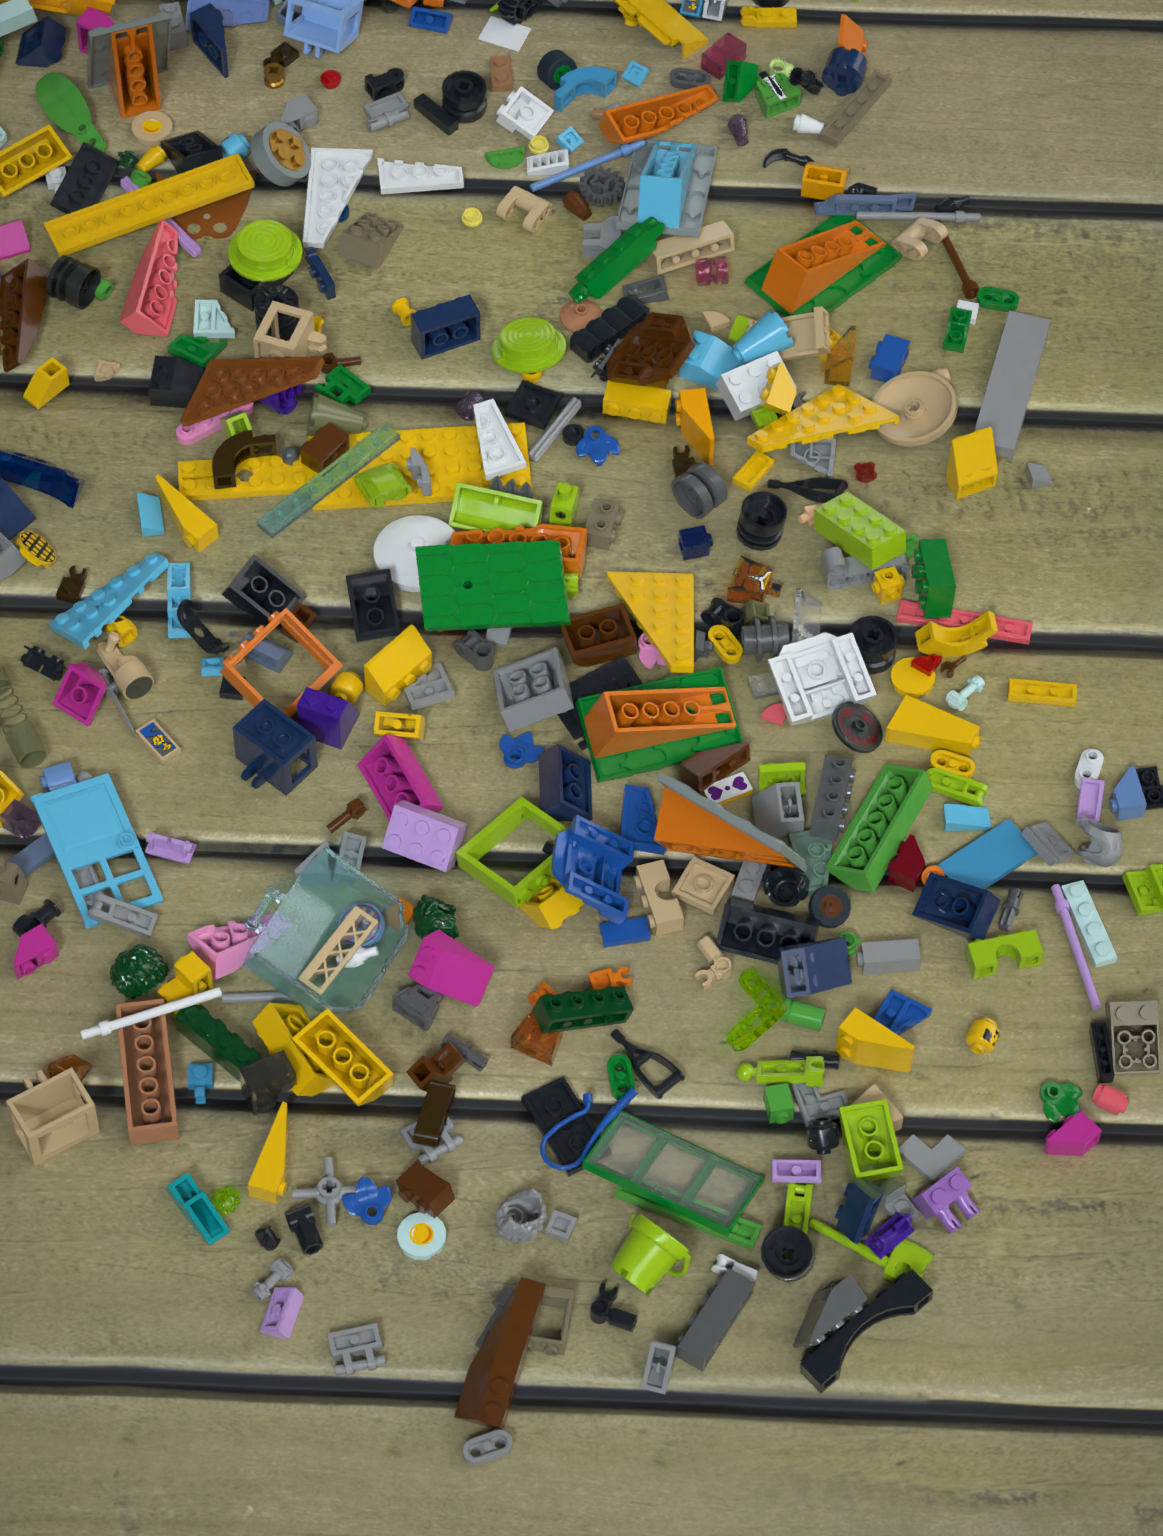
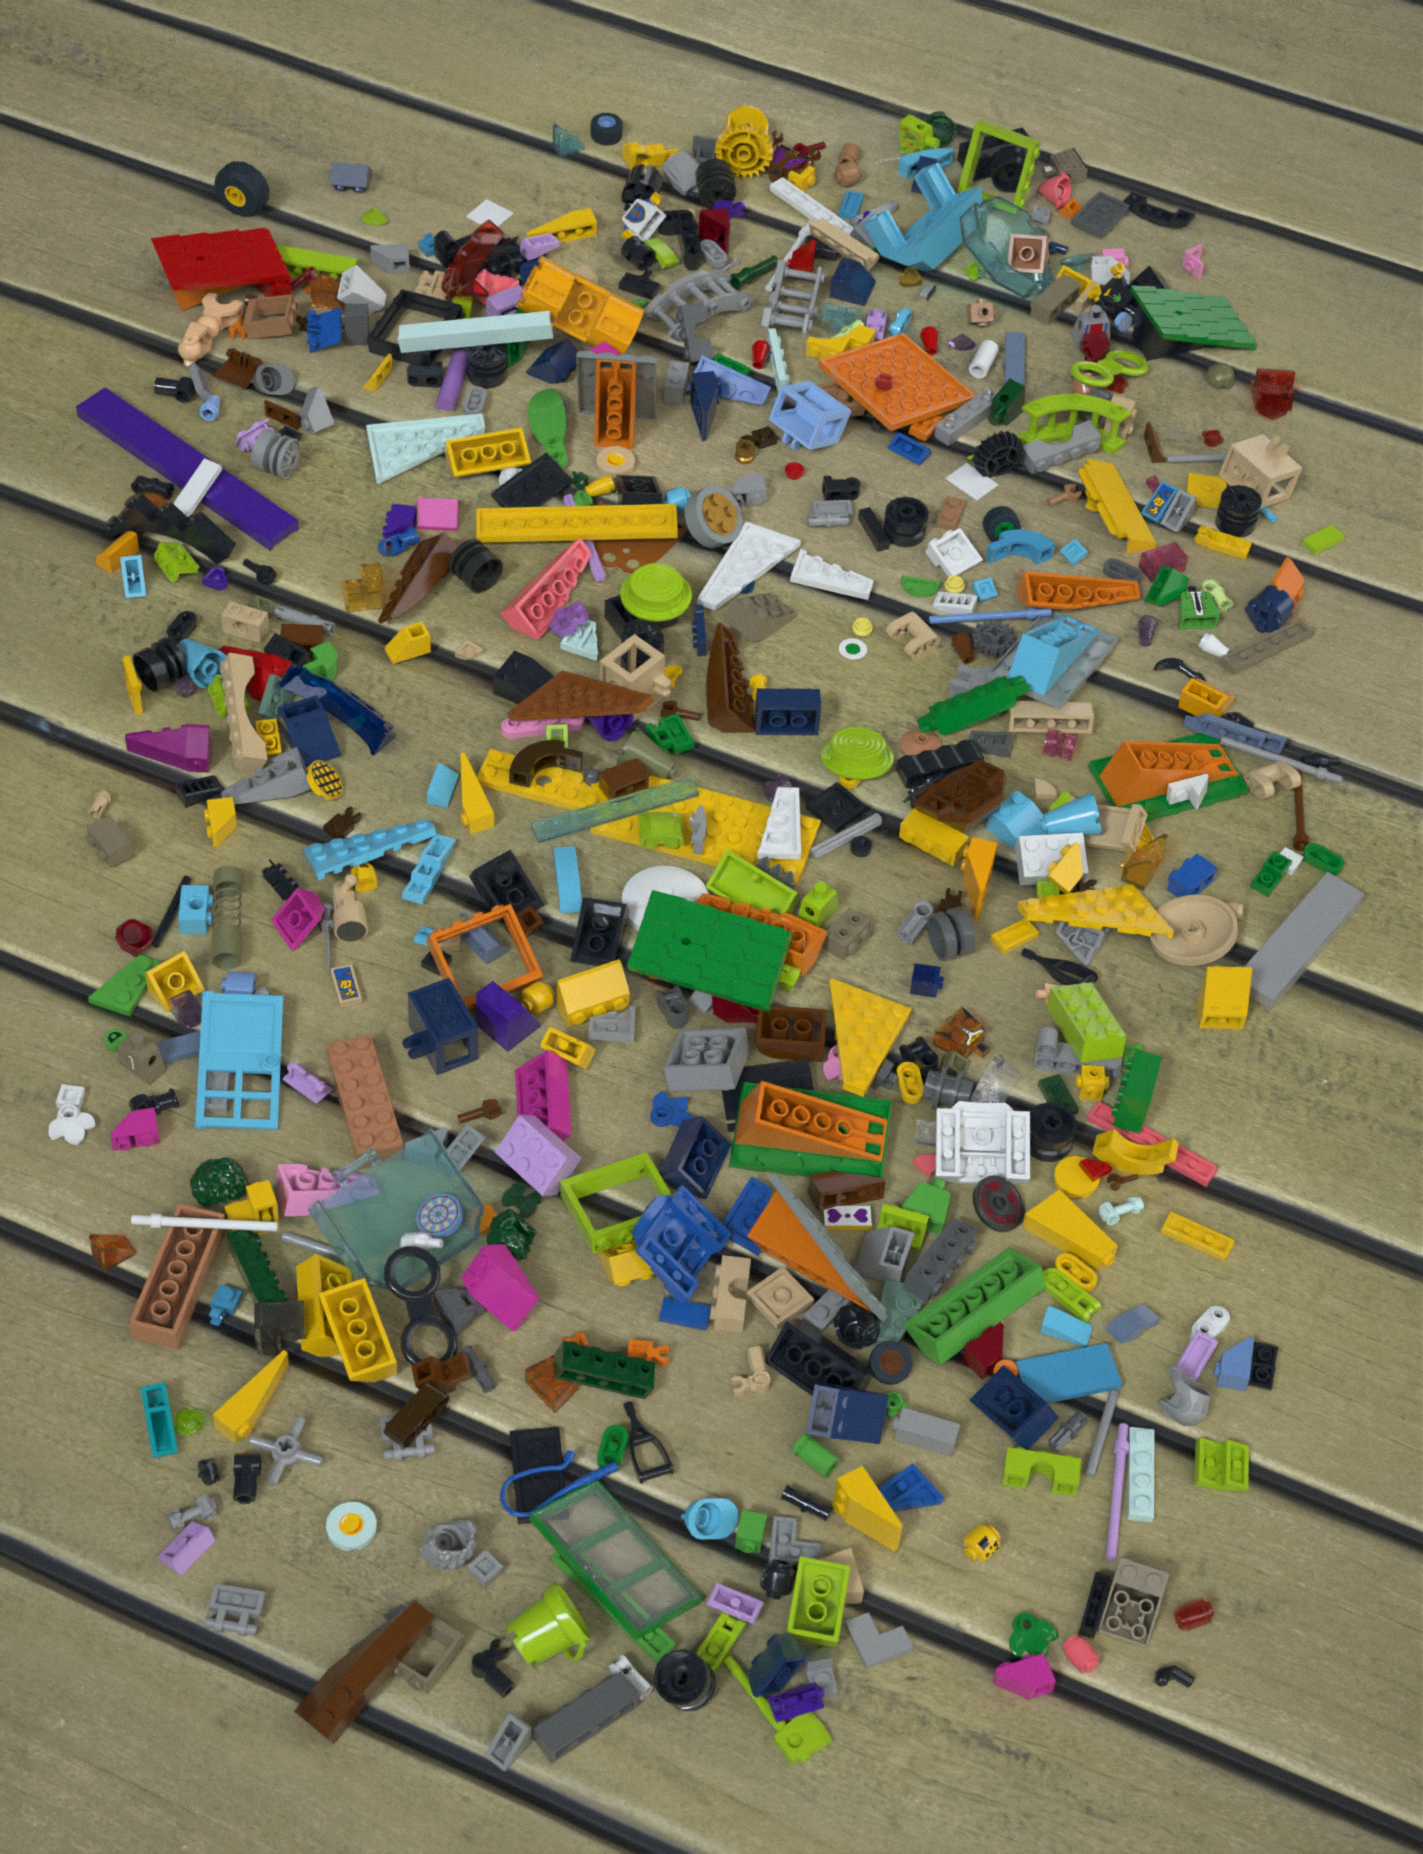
camera: 20 degrees right, 5 degrees down
(52, 1115) = (70, 1282): tan piece -> none
(104, 290) = (501, 582): bright green tile -> none
(123, 915) = (231, 1127): light grey plate -> none
(189, 306) = (568, 618): none -> medium lavender plate
(189, 621) = (425, 888): black piece -> none
(196, 349) = (556, 658): green wing -> none
(233, 843) = (363, 1097): none -> nougat brick
(317, 564) = (567, 879): none -> medium azure slope
(333, 947) = (401, 1225): tan fence -> none
(368, 1197) = (316, 1469): blue plate -> none
(380, 335) = (726, 694): none -> reddish brown wedge
(385, 1013) = (419, 1302): none -> black bar
(417, 883) = (526, 1205): none -> clear green piece
(425, 1190) = (373, 1483): reddish brown brick -> none
(472, 242) = (852, 648): none -> white sticker
(486, 1447) = (309, 1752): light grey plate -> none
(534, 636) = (733, 1012): none -> dark red slope
(597, 447) = (878, 865): blue plate -> none
(601, 17) = (1068, 494): none -> medium nougat bar
(659, 490) = (915, 922): none -> light grey piece
(738, 1105) = (711, 1518): none -> medium azure piece
(761, 520) = (997, 981): black wheel -> none
(763, 1011) = (777, 1438): clear neon green beam -> none
(785, 1071) = (771, 1503): lime plate -> none
(799, 748) = (932, 1202): none -> bright green torso
(806, 80) = (1229, 606): black connector -> none
(828, 1309) = (703, 1747): dark grey slope -> none
(850, 274) = (1188, 789): none -> white slope
(860, 606) = (1055, 1091): none -> clear green plate
(865, 477) = (1120, 972): clear red plate -> none
(905, 1297) = (778, 1769): black arch -> none
(937, 1198) = (875, 1679): medium lavender brick -> none
(1022, 791) = (1131, 1323): none -> sand blue slope
(1037, 475) = (1288, 1032): light grey slope -> none
(1039, 901) = (1101, 1434): none -> light grey bar
(1048, 843) = (1134, 1381): light grey plate -> none

